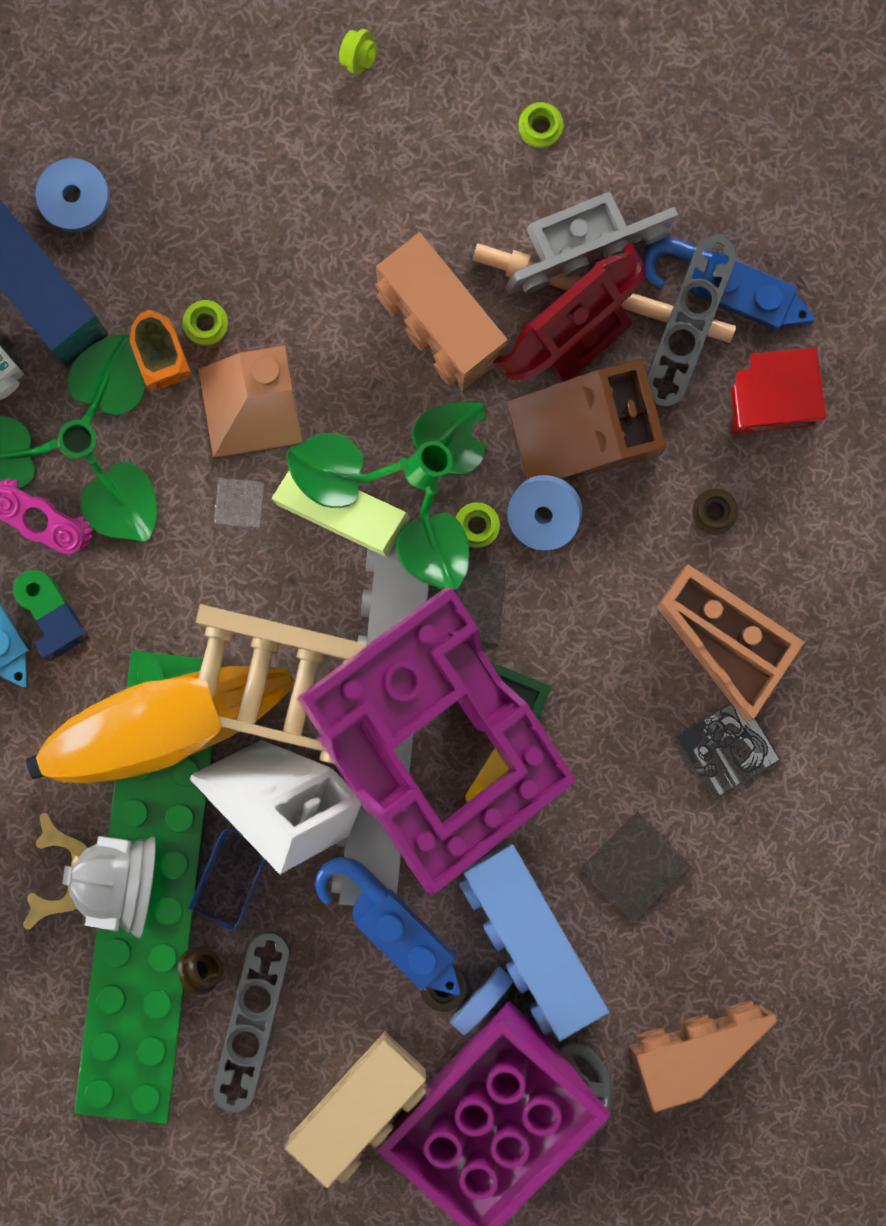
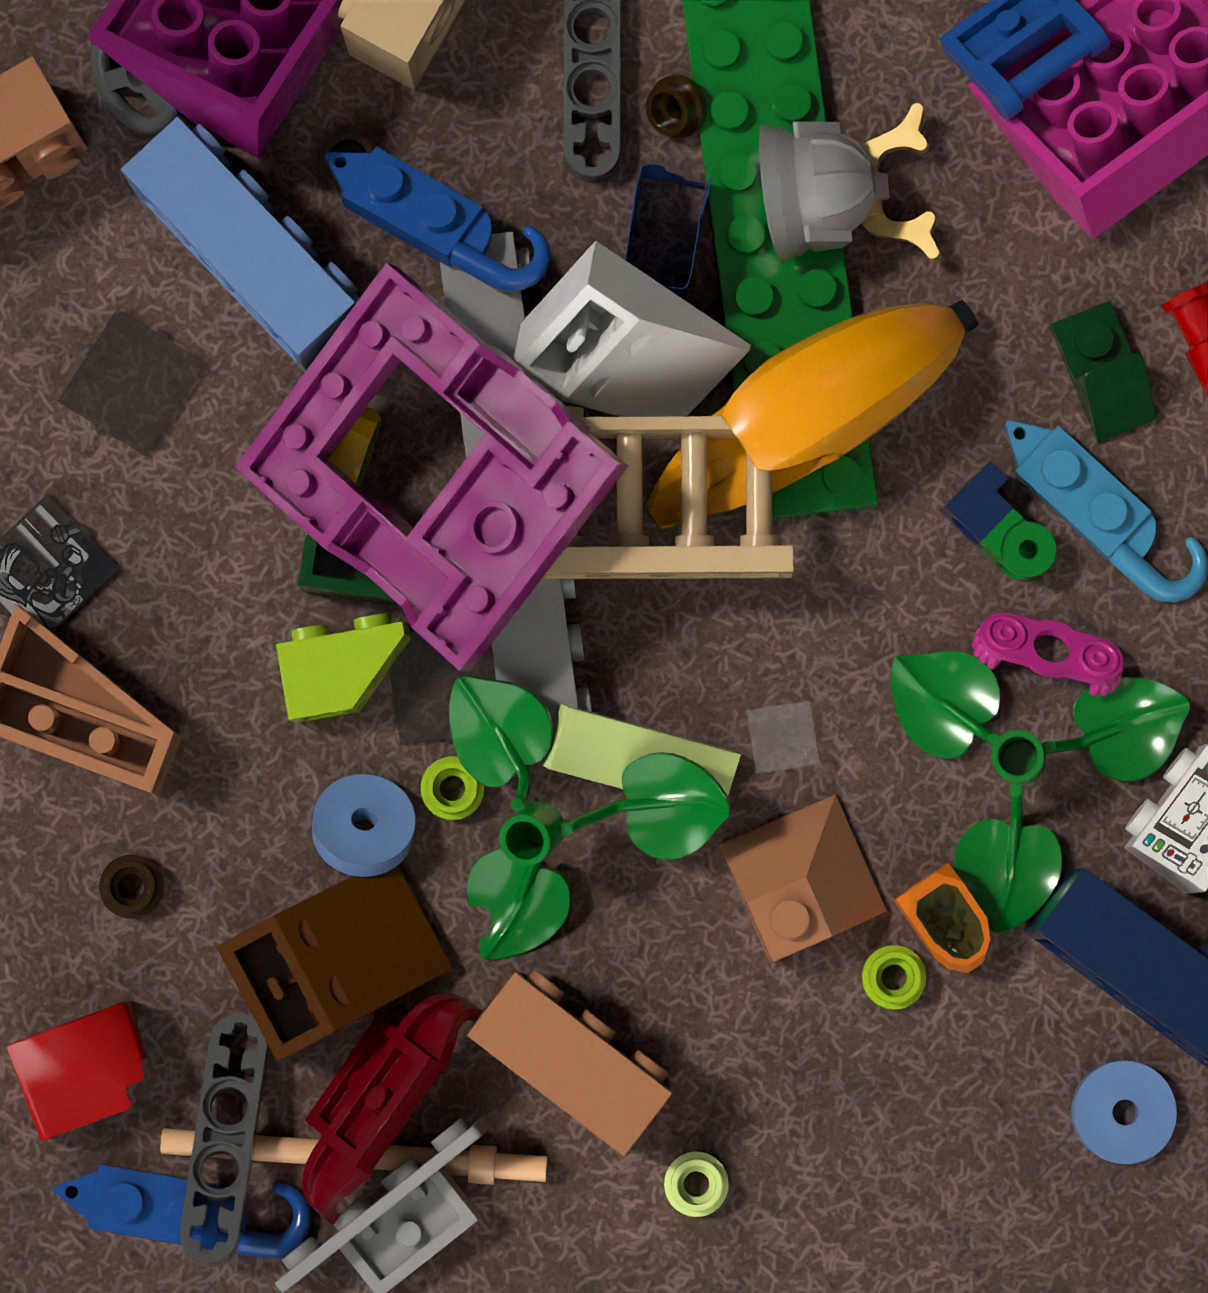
camera: 170 degrees right, 0 degrees up
(368, 205) = (696, 1205): none -> yellowish green plate
(481, 1001) = (294, 153): medium blue piece -> none
(538, 623) = (338, 671): none -> lime slope

